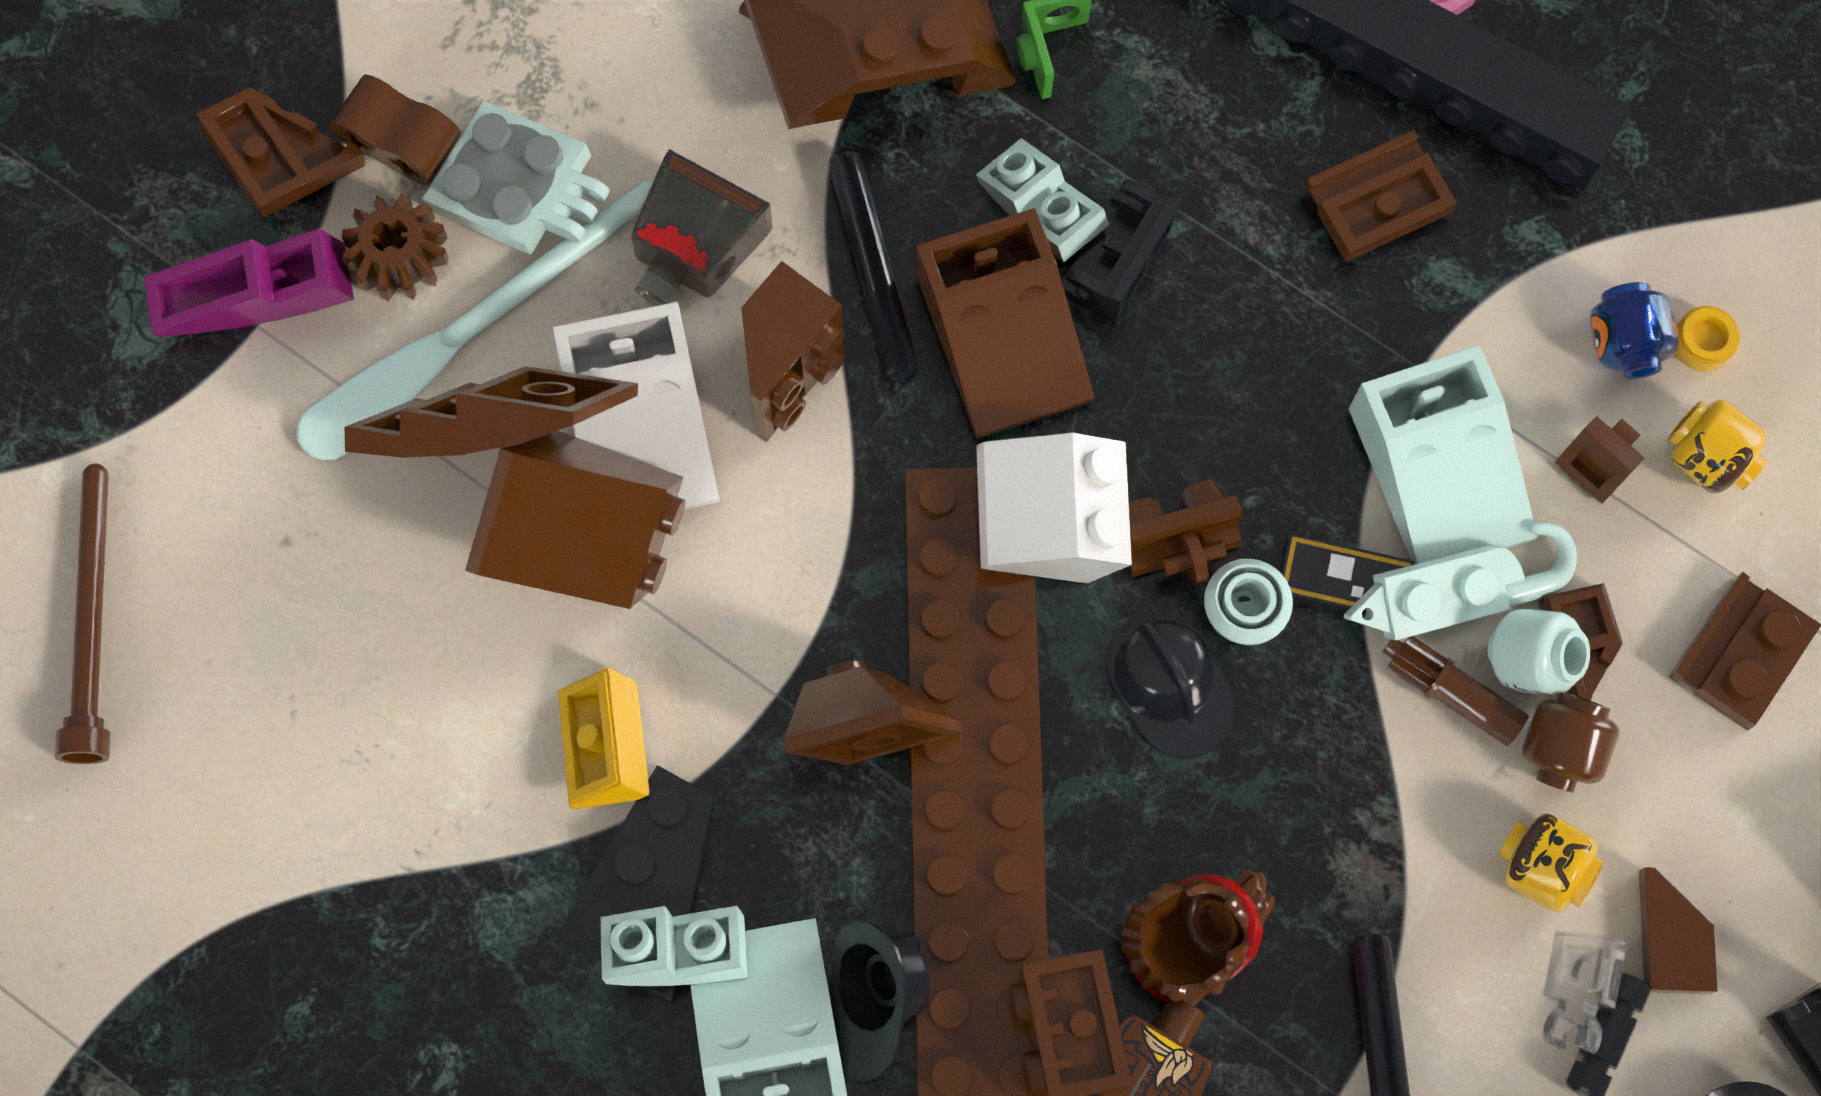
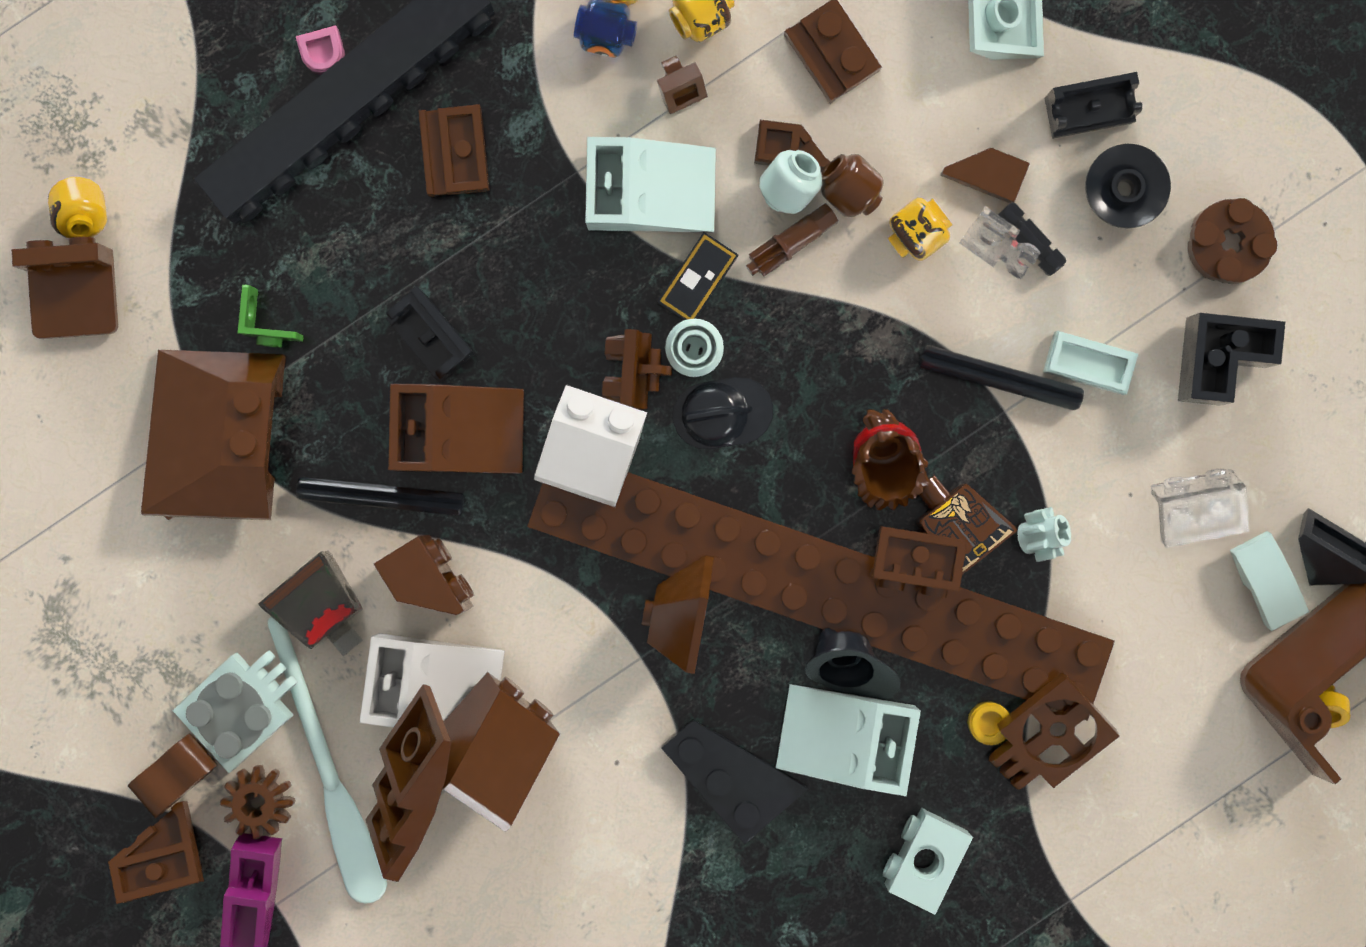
camera: 65 degrees left, 15 degrees up
(603, 740) = (634, 775): yellow slope -> none
(667, 950) = (781, 778): light aqua slope -> none
(1028, 180) = (375, 369): light aqua slope -> none
(1460, 587) = (732, 211): light aqua plate -> none

